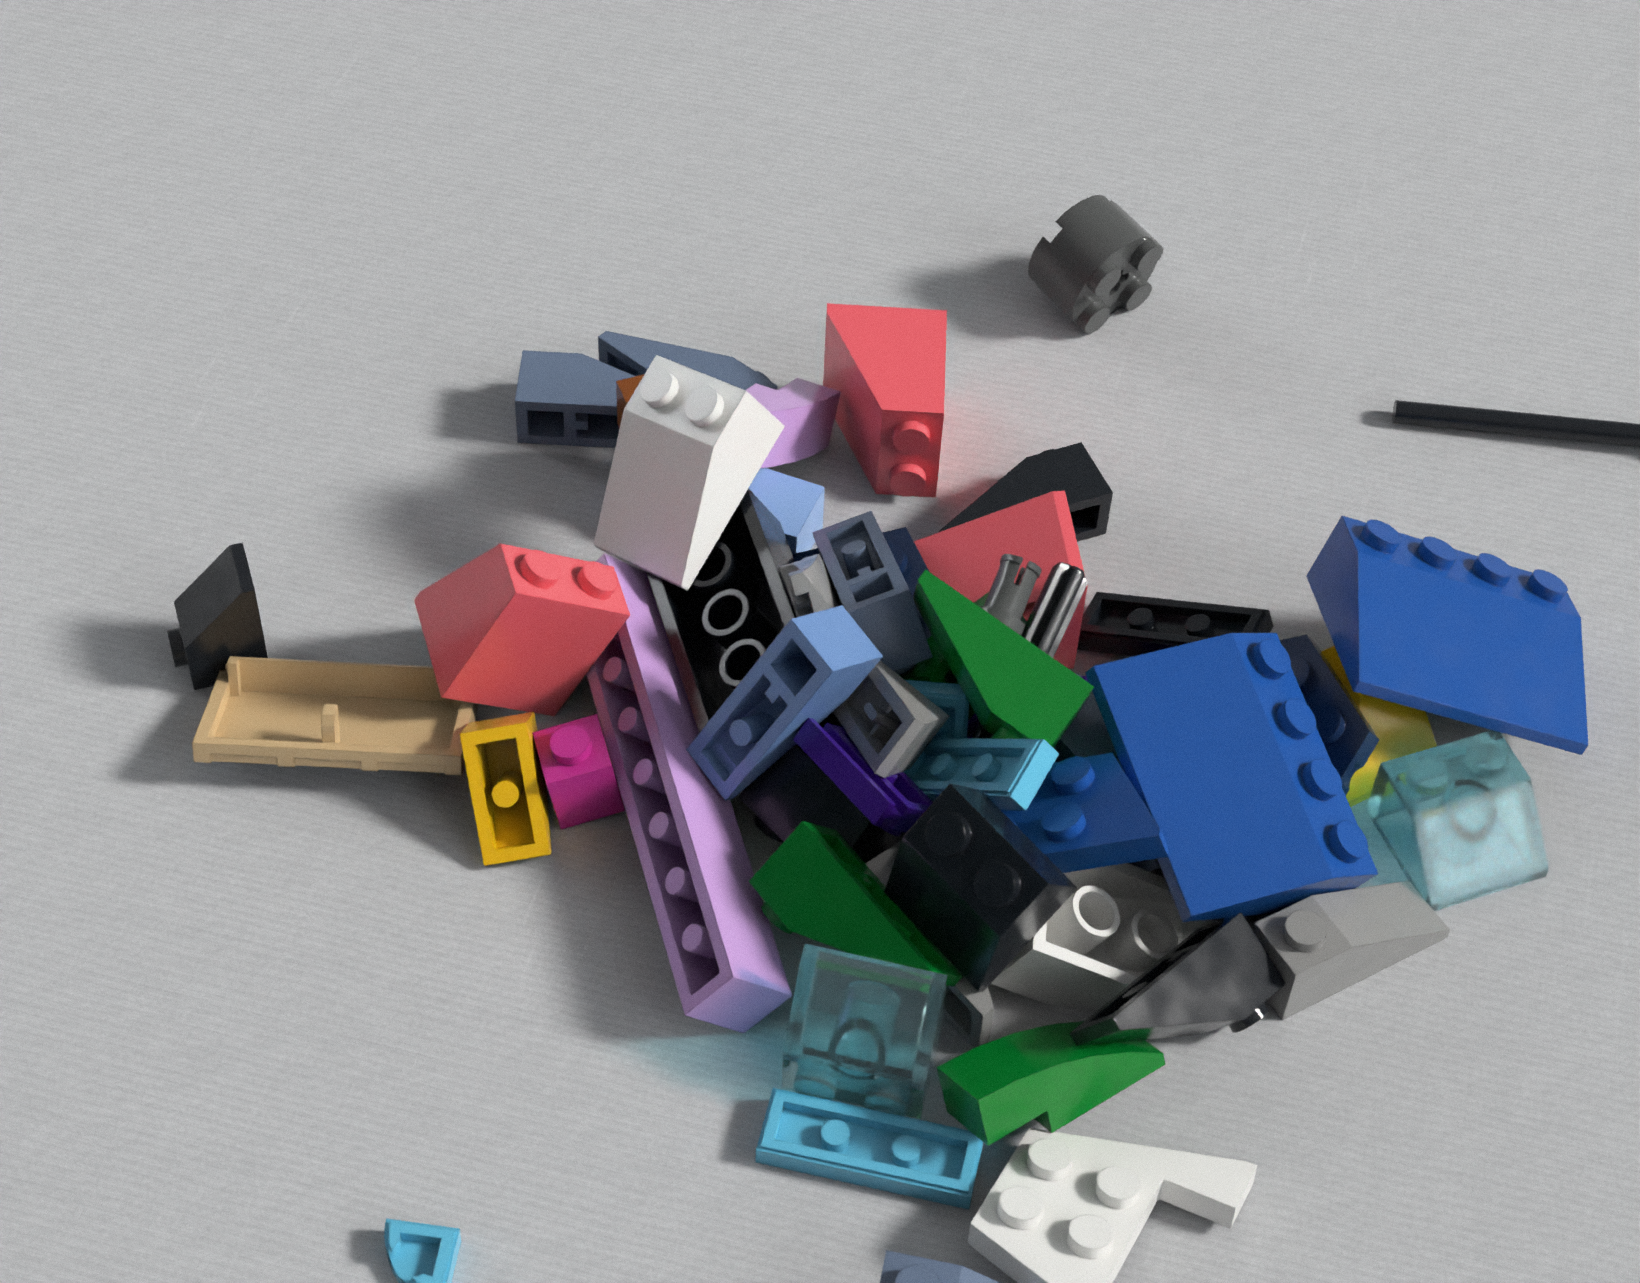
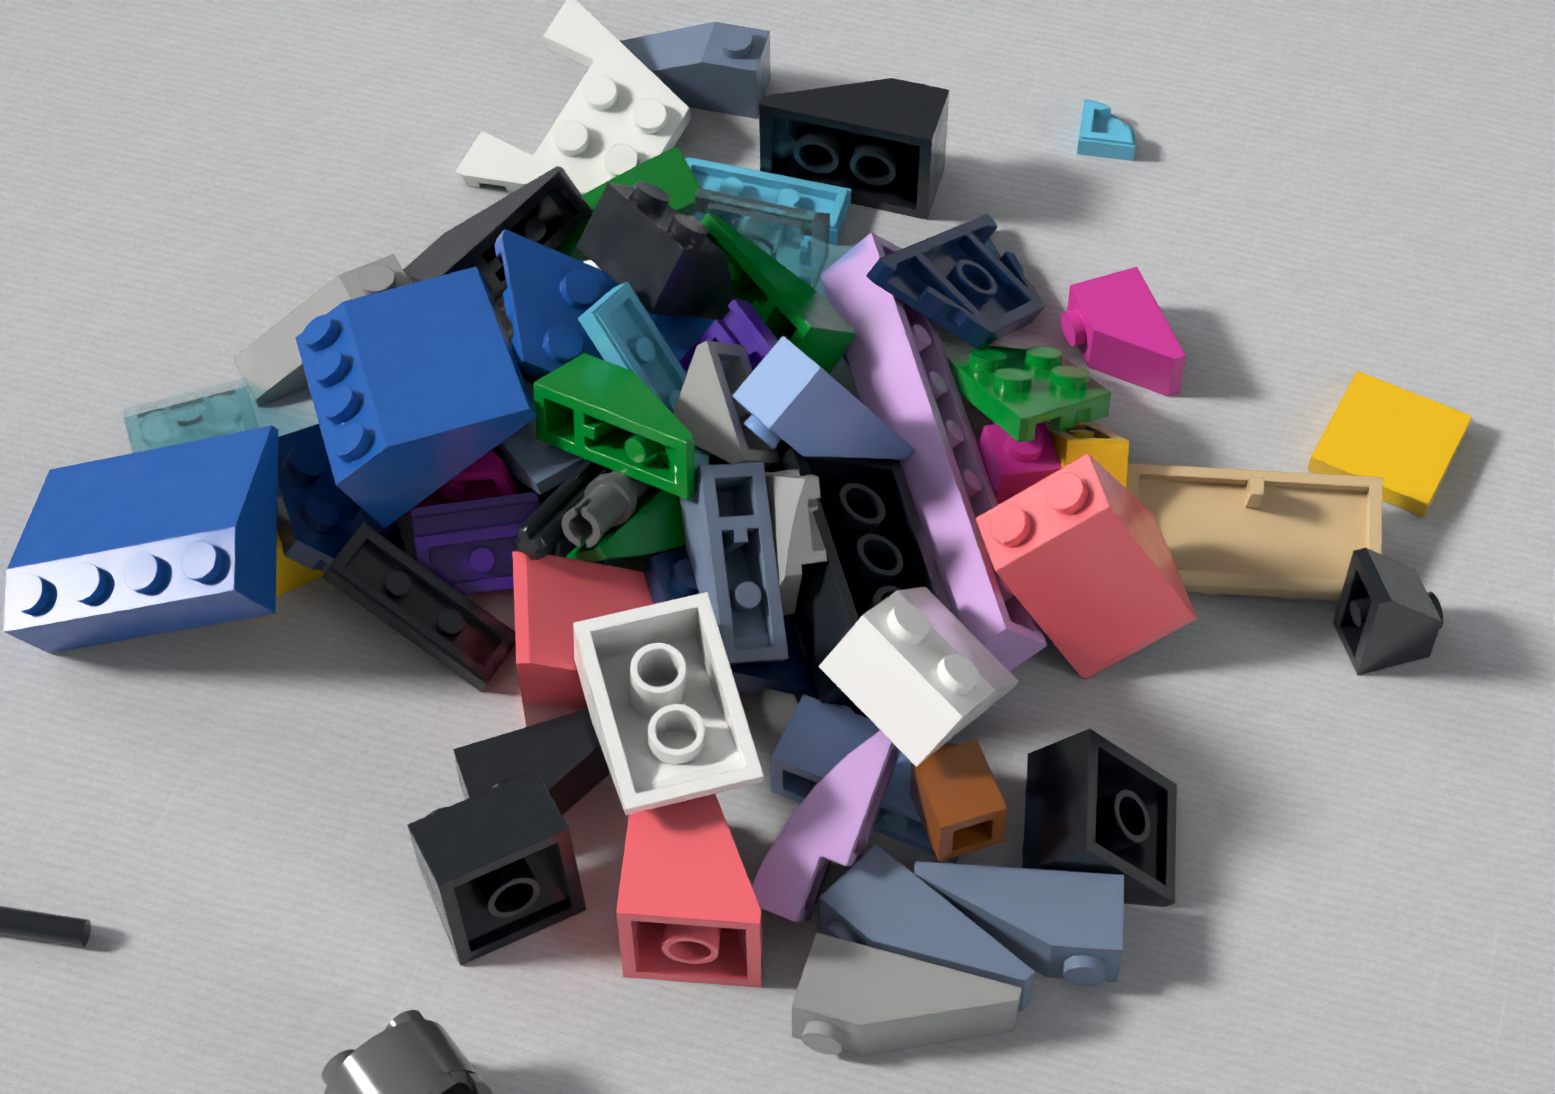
camera: 175 degrees left, 5 degrees up
(162, 840) = (1394, 437): none -> yellow tile
(442, 946) = (1124, 332): none -> dark pink slope
(529, 468) = (1101, 814): none -> black slope
(565, 840) = (1026, 387): none -> green wing
(621, 969) = (962, 283): none -> dark blue wing
(744, 1154) = (863, 136): none -> black slope
(750, 333) = (884, 1001): none -> light grey slope
(924, 439) = (665, 703): none -> white slope
(1055, 395) = (498, 866): none -> black slope

